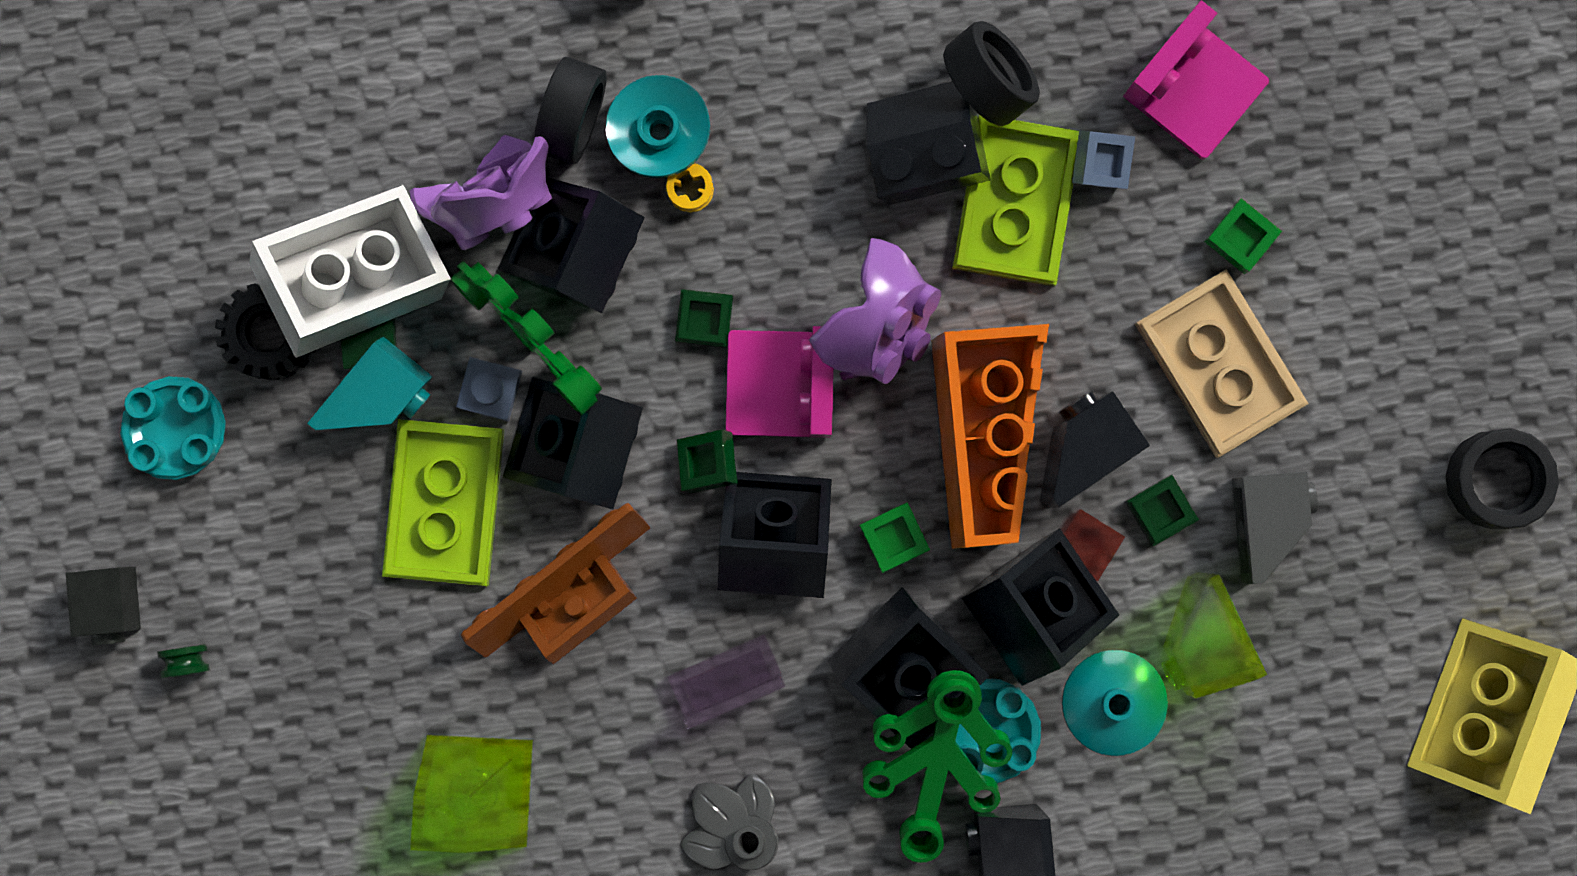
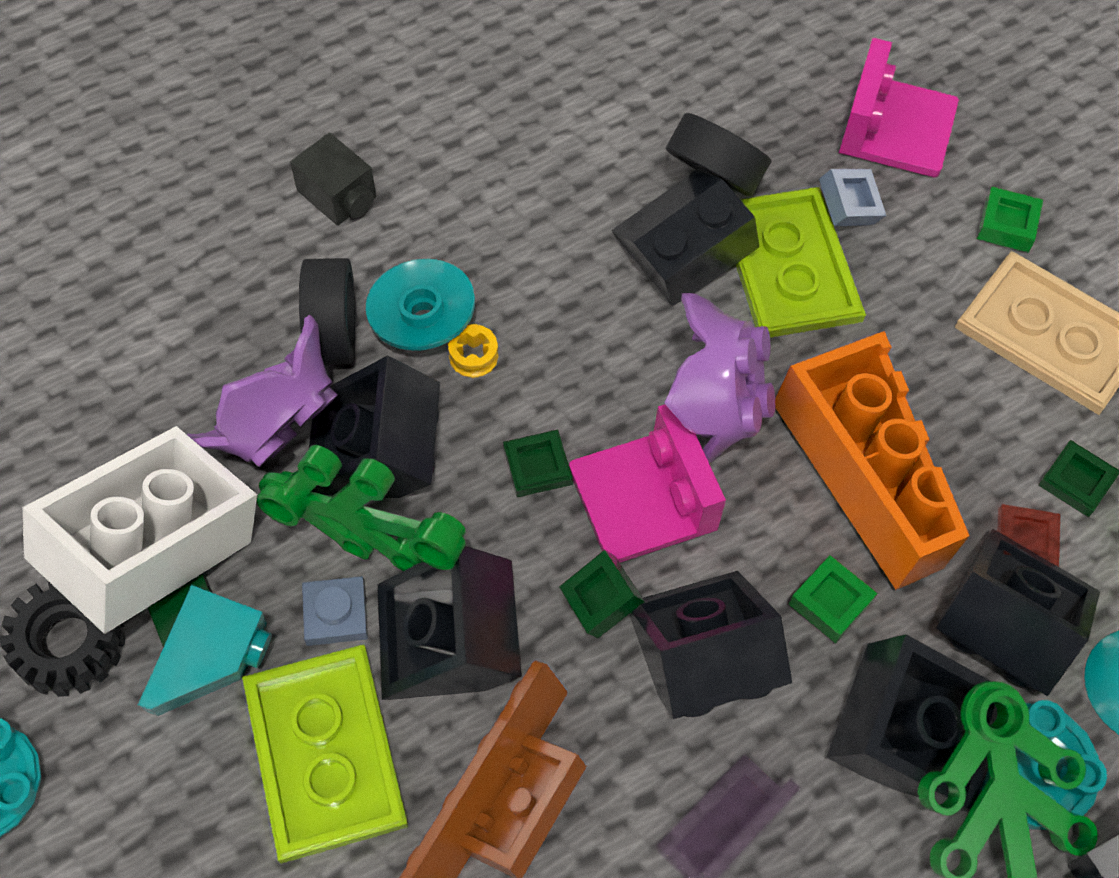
camera: 25 degrees left, 25 degrees down
(1088, 446) = (981, 423): black slope -> none

